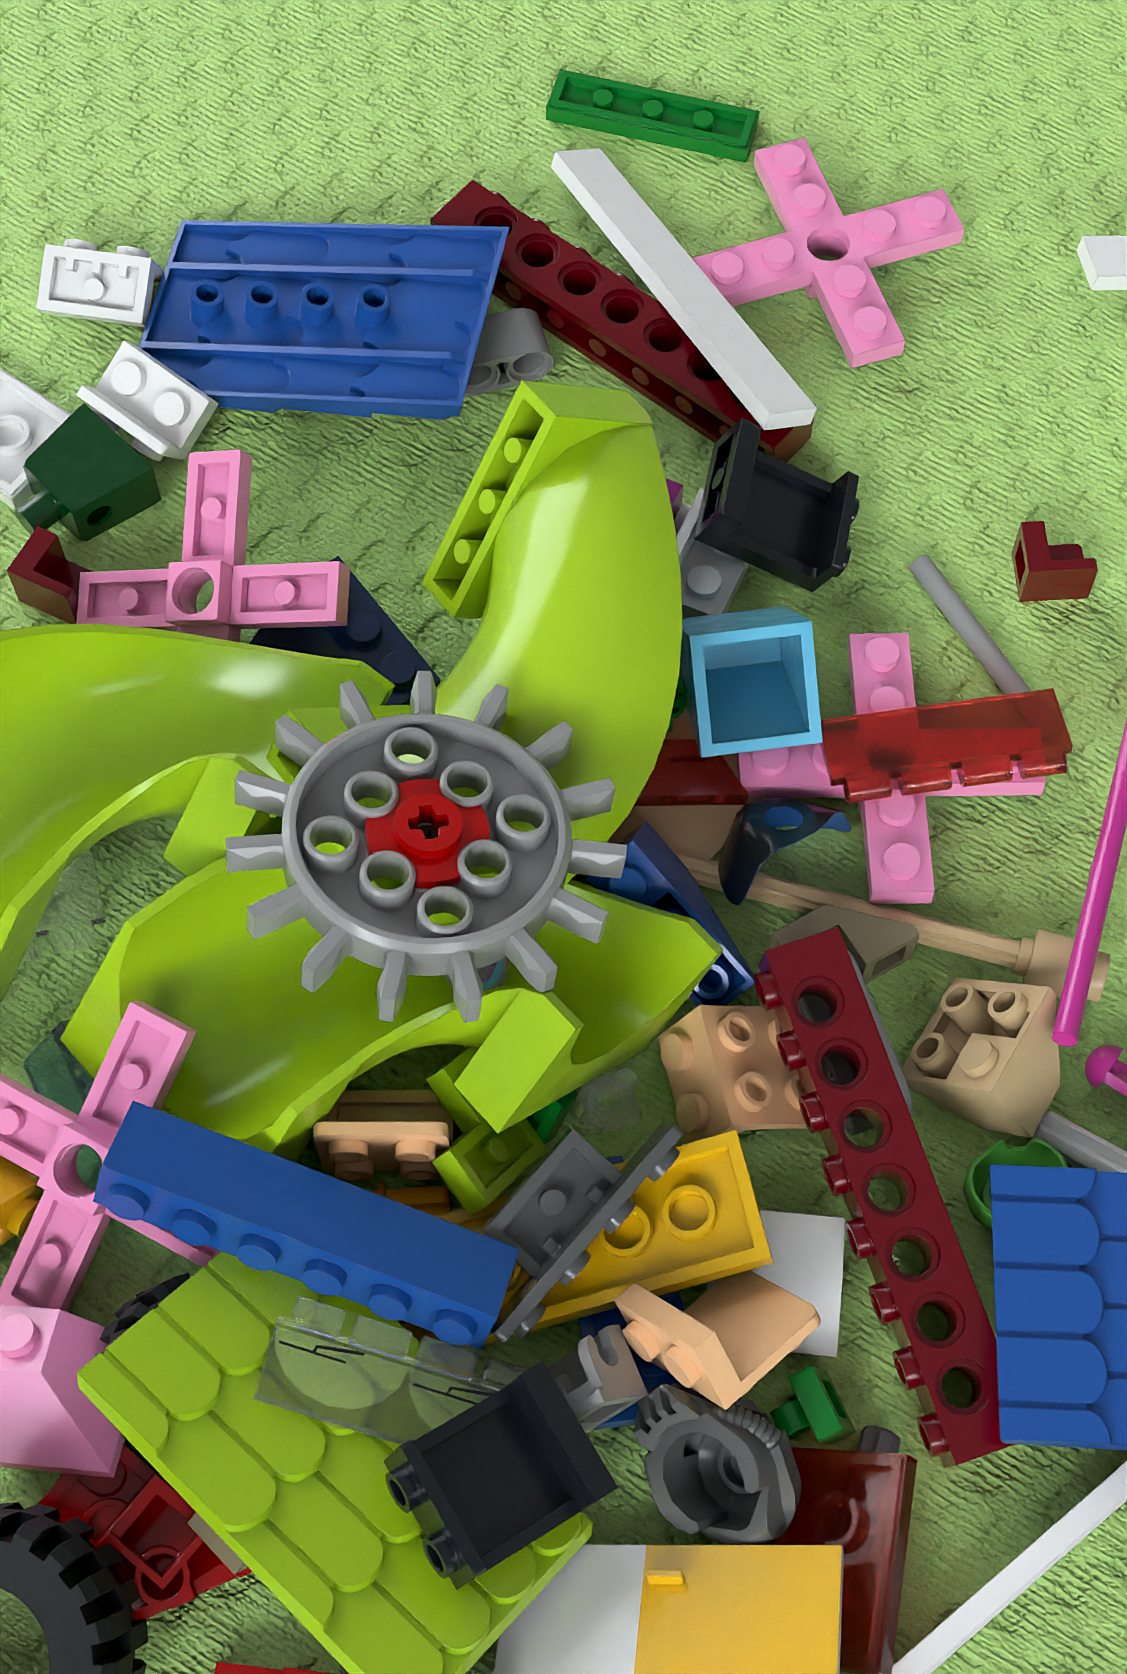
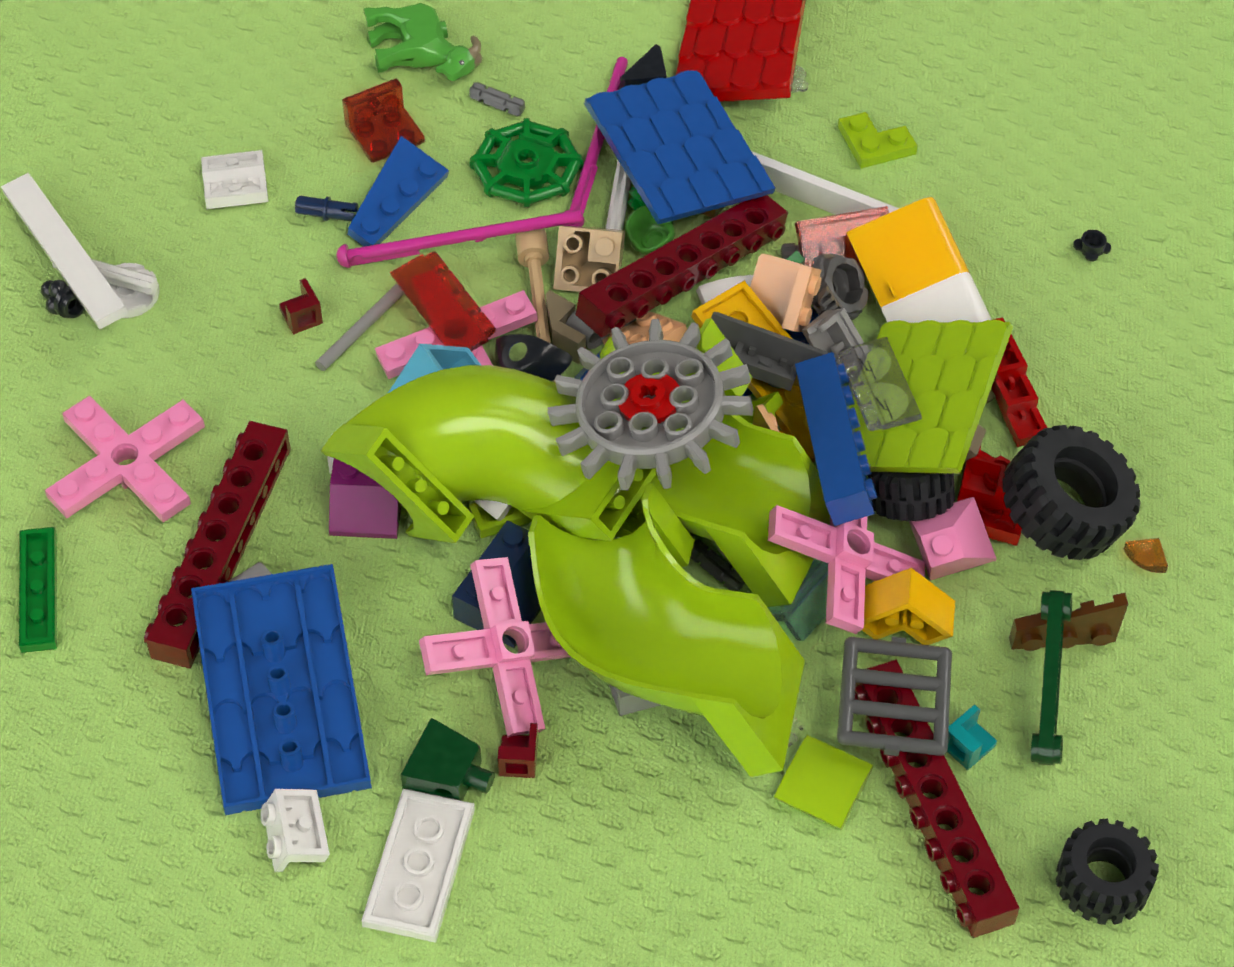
camera: 115 degrees left, 10 degrees down
(149, 404) = (379, 753): white bracket -> none
(497, 1476) = (894, 336): black panel -> none
(684, 290) = (185, 512): white tile -> none
(775, 511) = (319, 412): black panel -> none

